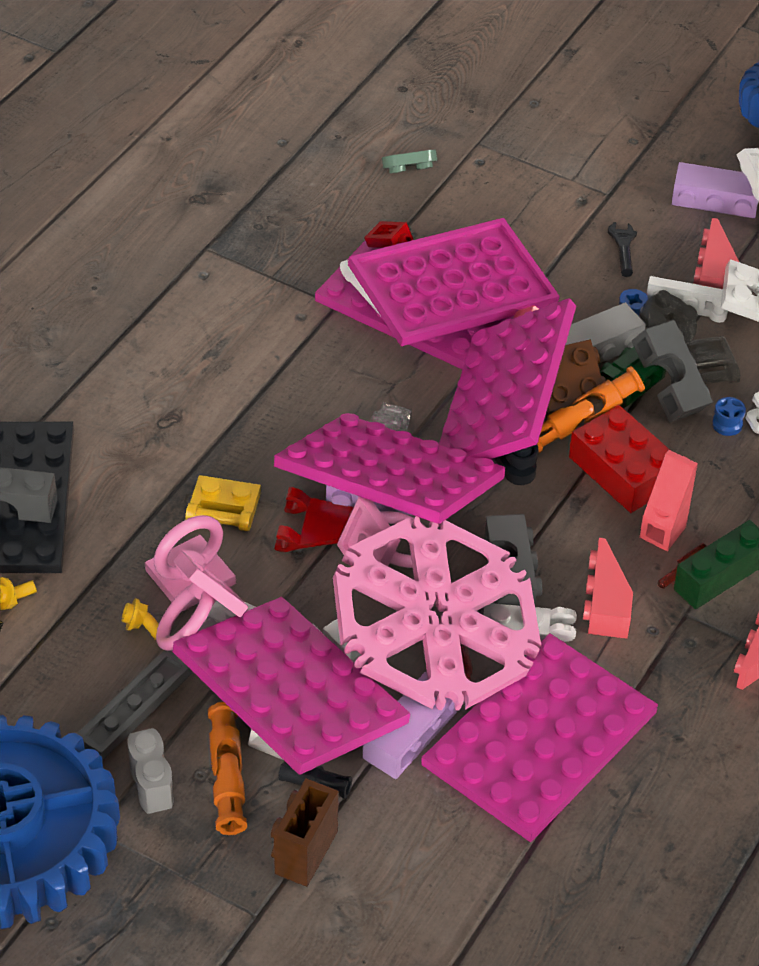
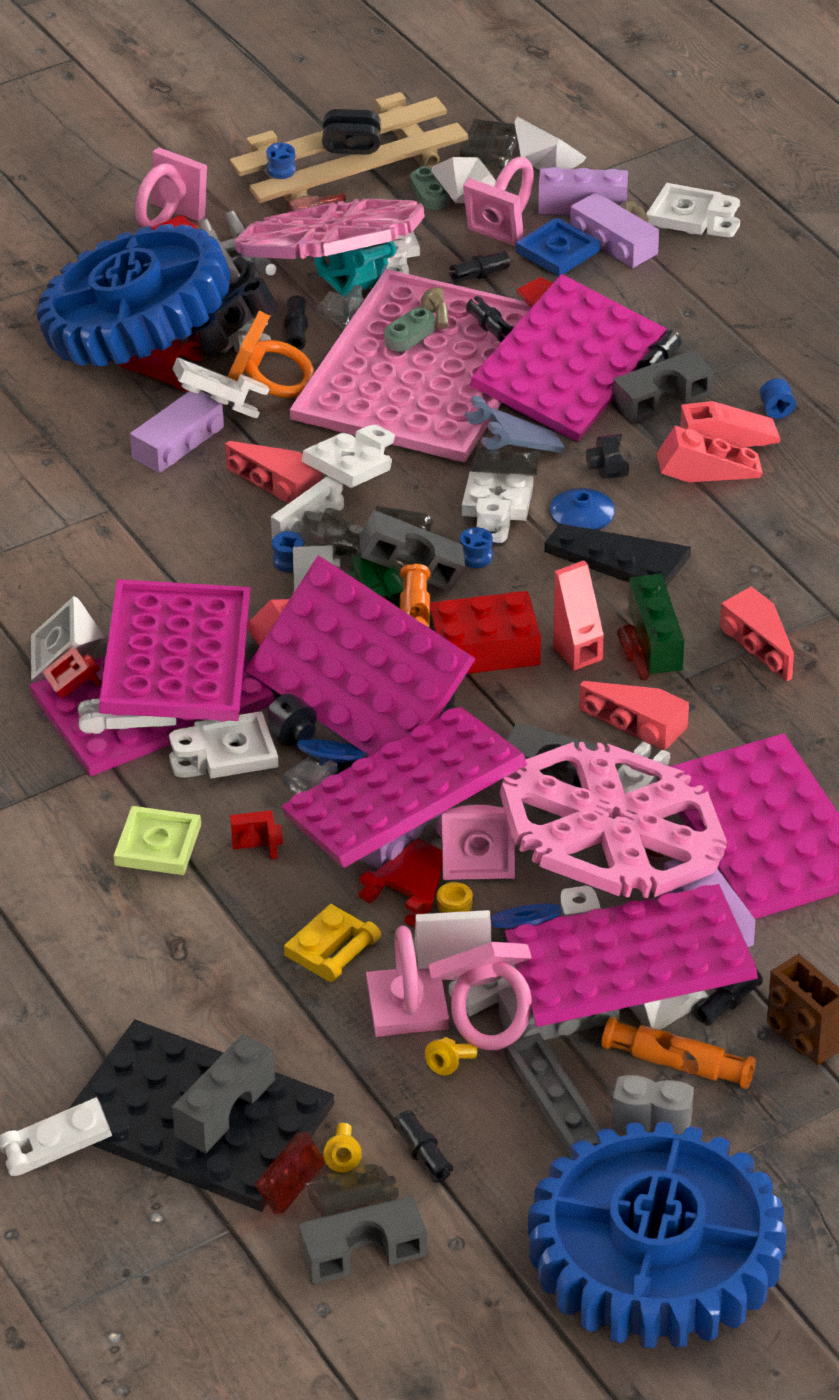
camera: 60 degrees left, 5 degrees down
(35, 640) = (422, 1146): none -> black pin
(252, 571) = (449, 934): none -> white slope
(263, 360) = (157, 840): none -> yellowish green plate
(306, 411) = (256, 830): none -> red bracket
(312, 605) = (527, 914): none -> blue dish
(318, 560) = (454, 898): none -> yellow tile
(378, 348) = (212, 747): none -> white plate
(421, 416) = (331, 750): none -> blue dish
(437, 221) = (61, 632): none -> white slope
(439, 384) = (292, 725): none -> black piece
(623, 239) = (181, 521): black piece -> none

